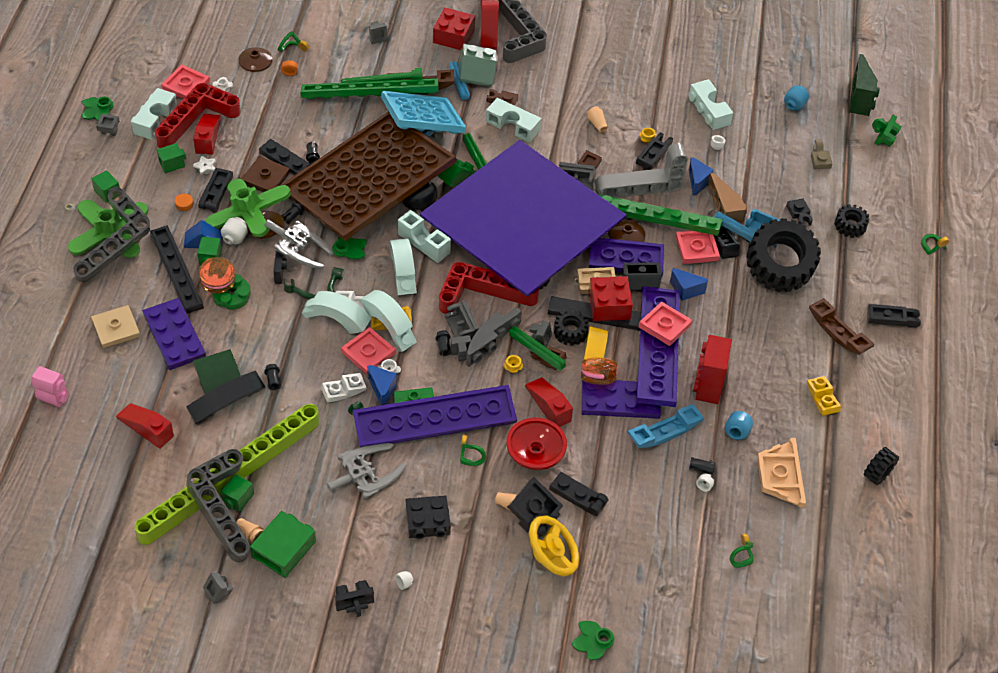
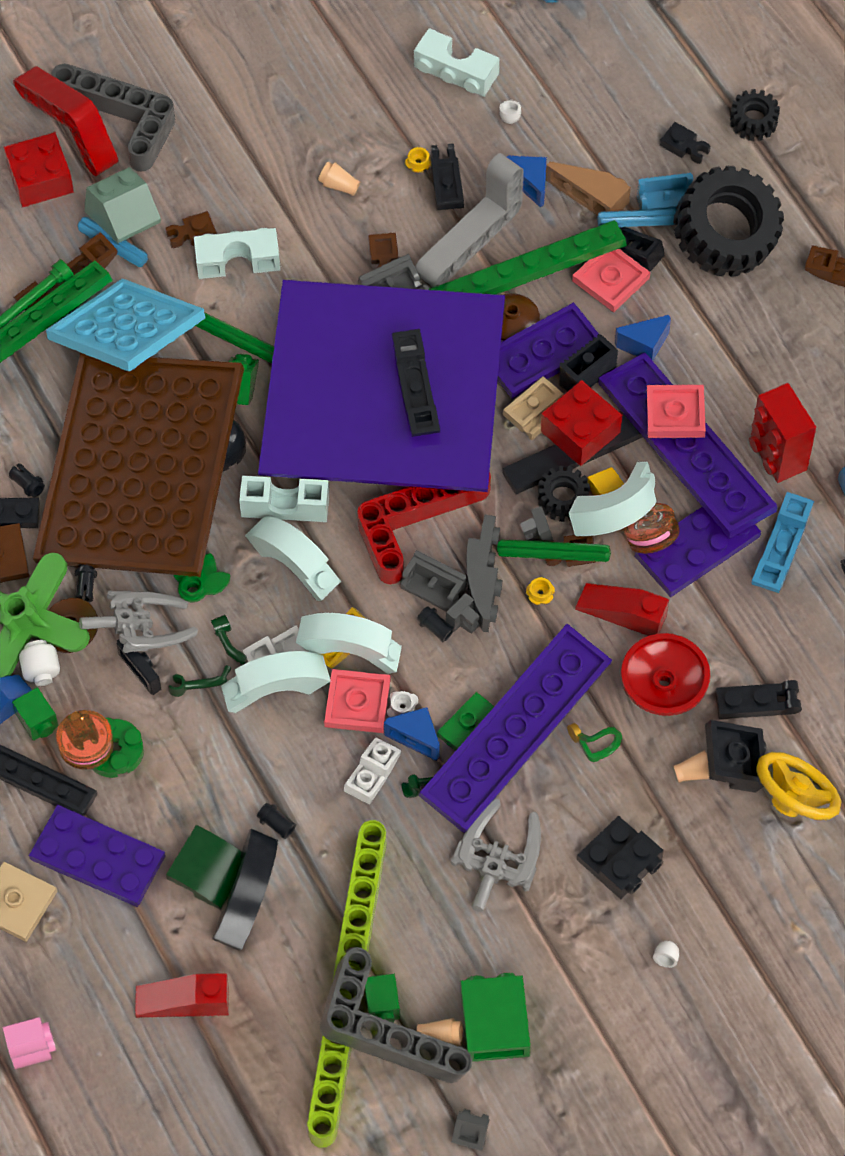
camera: 35 degrees left, 10 degrees up
(354, 600) = (641, 1006): black hips -> none
(538, 221) = (415, 383): none -> black slope
(588, 347) = (617, 508): none -> light aqua arch
(820, 158) = (644, 49): dark tan plate -> none

